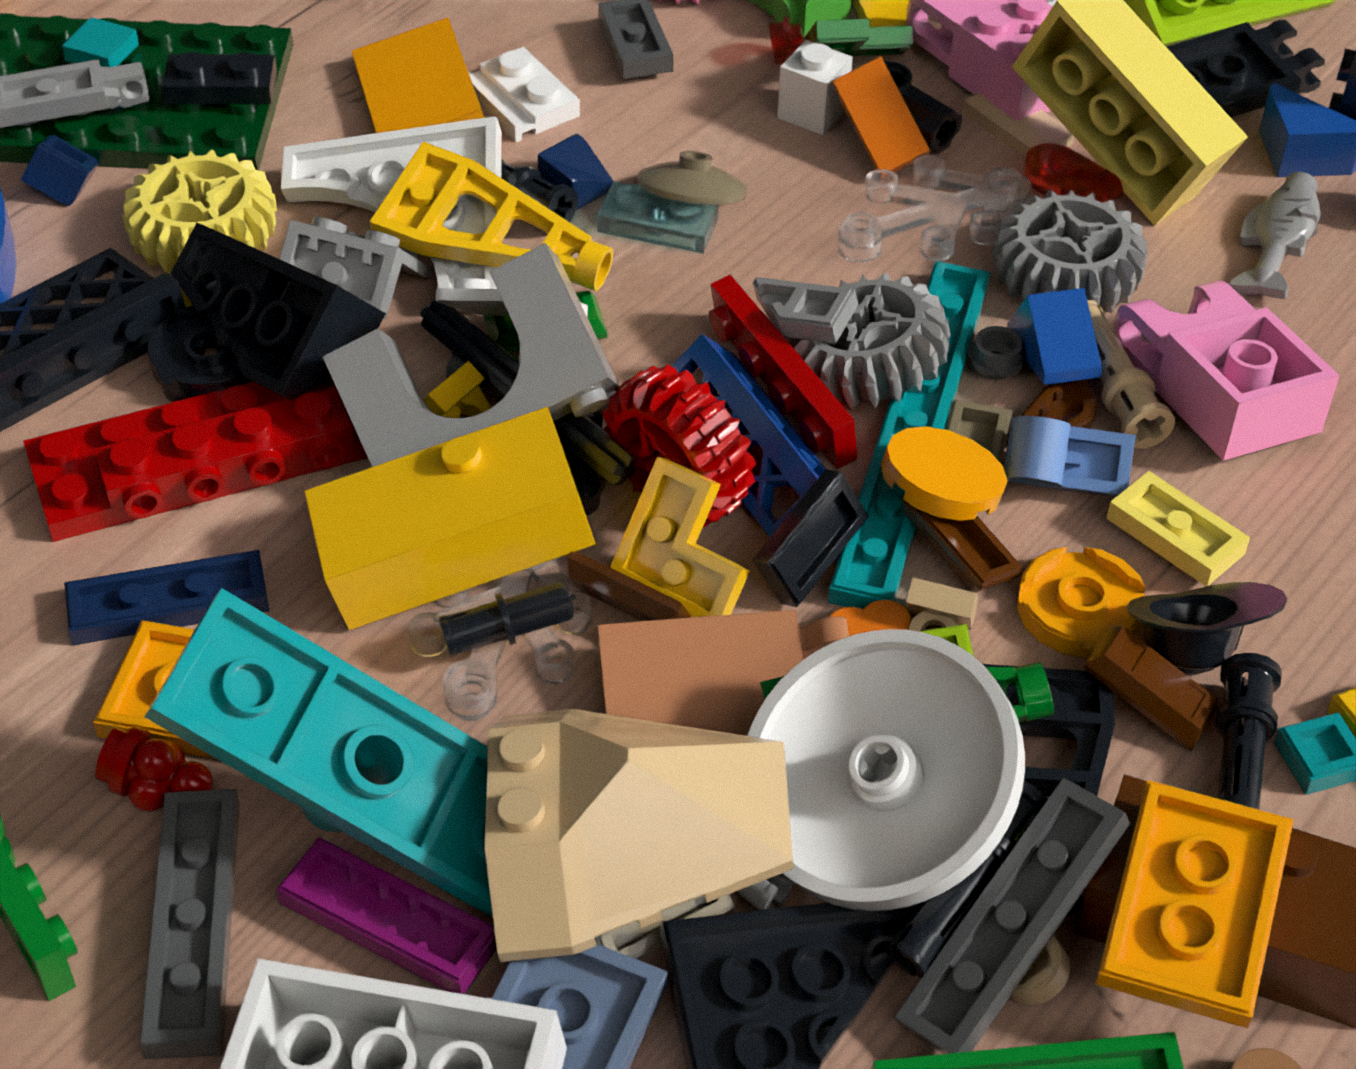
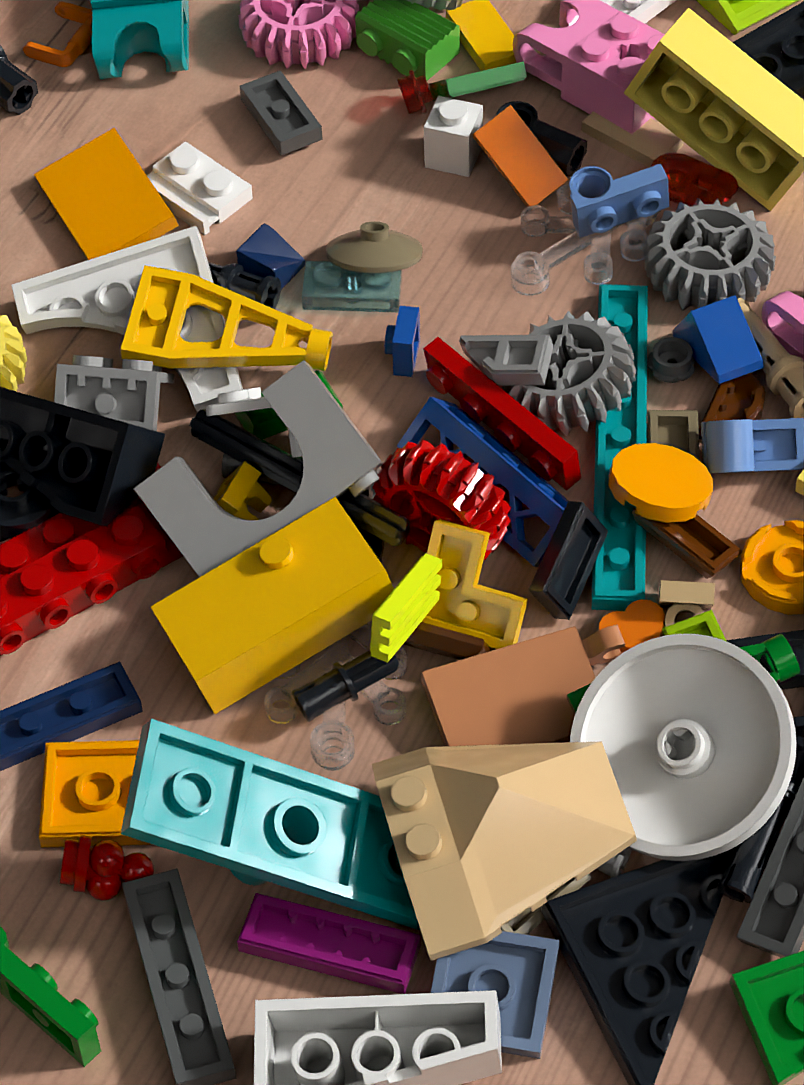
camera: 10 degrees left, 5 degrees up
(594, 545) = (405, 607): none -> neon yellow tile
(693, 276) = (404, 340): none -> blue plate
(966, 175) = (602, 203): none -> medium blue plate

